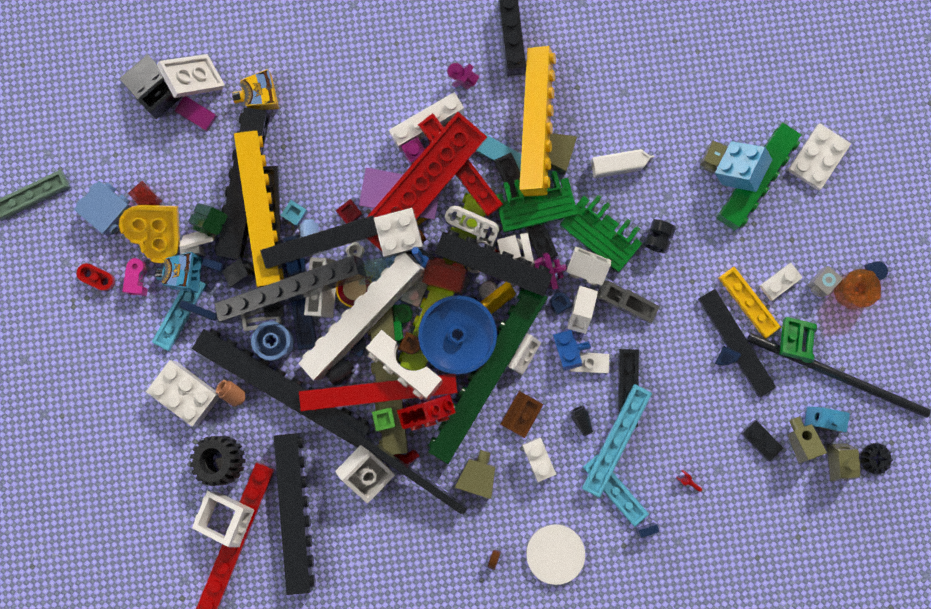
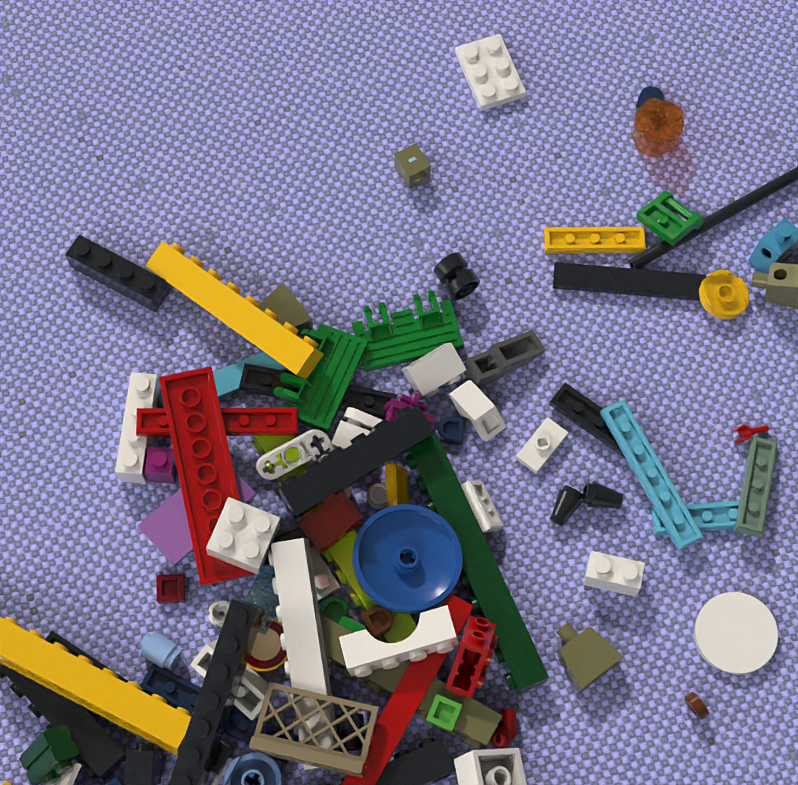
camera: 55 degrees left, 15 degrees down
(294, 213) = (121, 651): medium azure plate -> none
(304, 361) = (309, 754): none -> dark tan fence
(319, 242) = (182, 636): black tile -> none
(399, 465) = (510, 732): black tile -> none
(421, 259) = (289, 533): blue bar -> none
(462, 75) = (120, 352): magenta hips -> none
(521, 414) = (548, 557): reddish brown plate -> none
(562, 402) = (566, 504): none -> black cone
(569, 349) = (512, 454): blue plate -> none
(619, 163) = (345, 263): white piece -> none
(647, 530) = (774, 512): dark blue tile -> none
(655, 508) = (756, 487): none -> sand green tile
(727, 356) = (638, 300): dark blue tile -> none
(743, 166) = (446, 142): dark azure brick -> none
(743, 201) = (467, 140): green brick -> none
(762, 440) = (754, 328): black plate -> none
(770, 407) = (724, 294): none -> yellow tile
(780, 281) = (594, 195): white plate -> none
(824, 282) = (626, 153): light grey brick -> none

